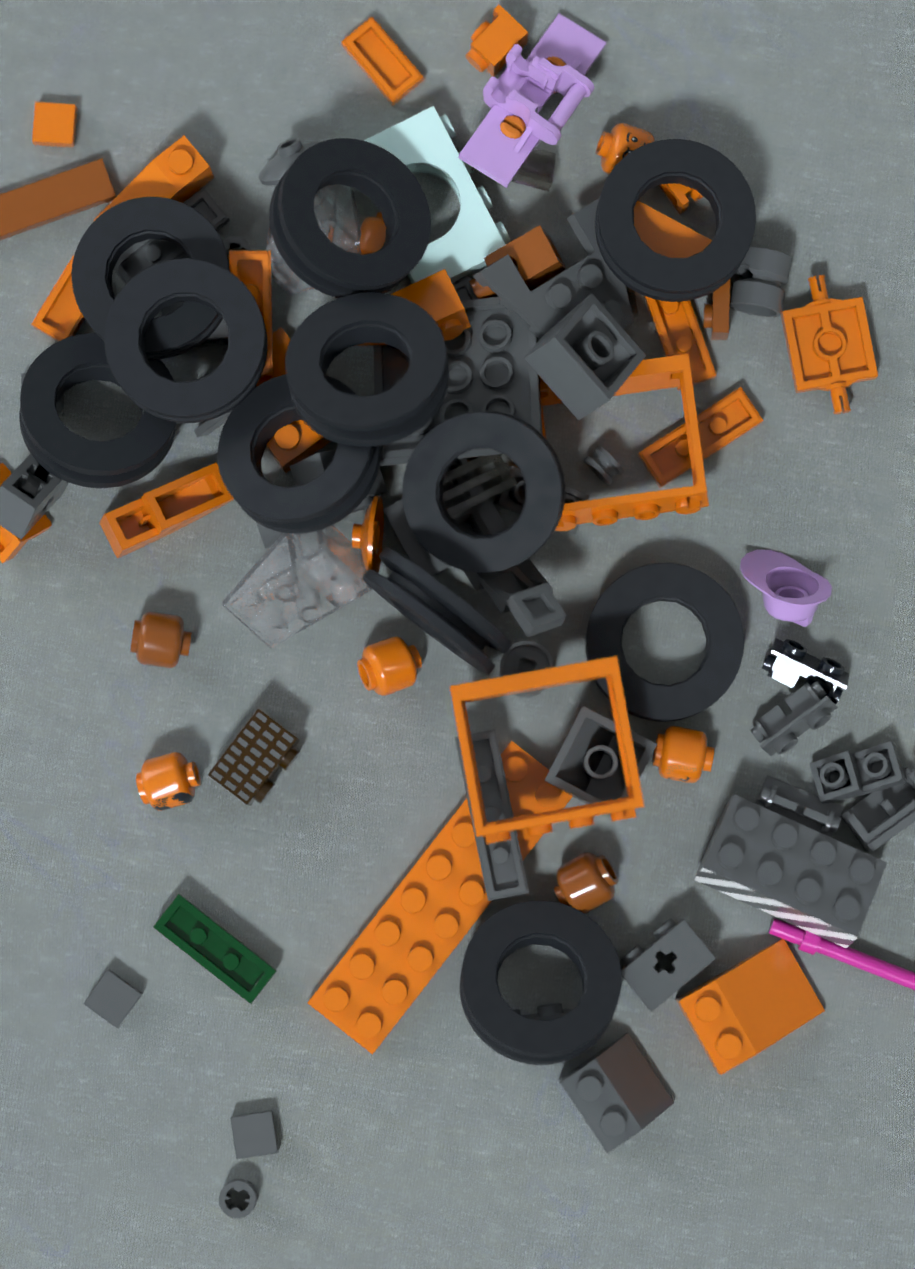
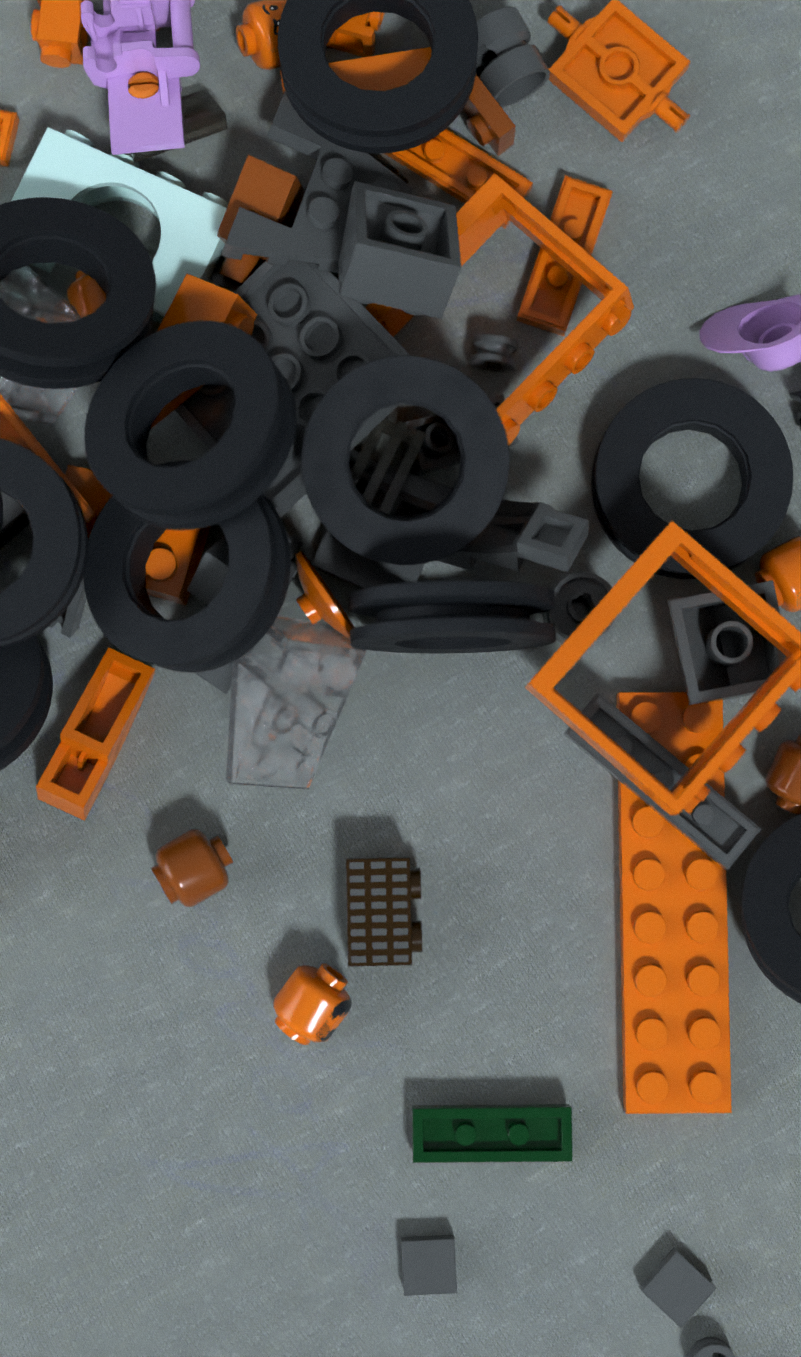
camera: 45 degrees left, 0 degrees up
(389, 666) = (441, 713): orange head -> none

